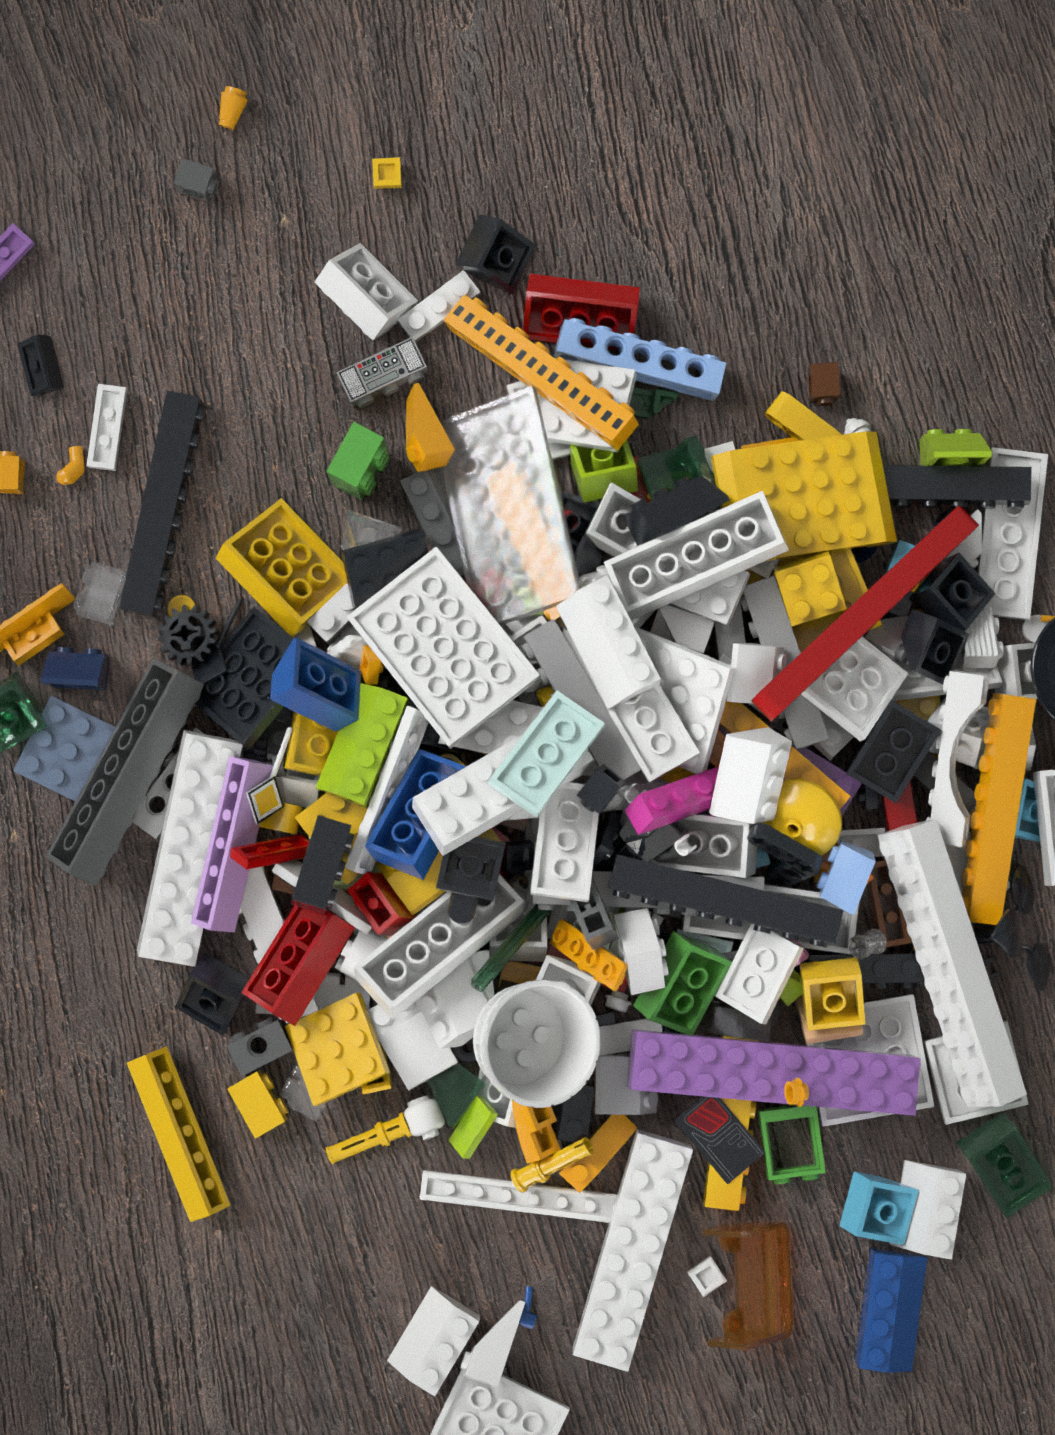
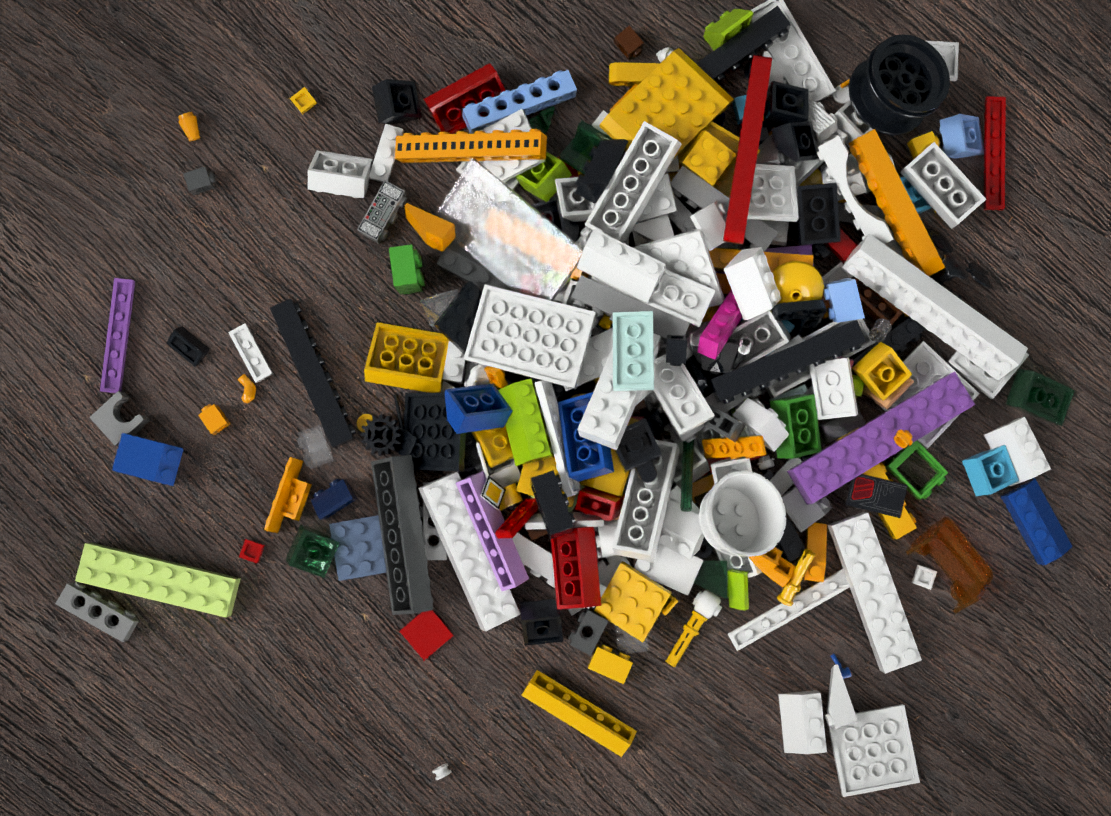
camera: 35 degrees left, 0 degrees up
(70, 908) = (426, 633): none -> red tile

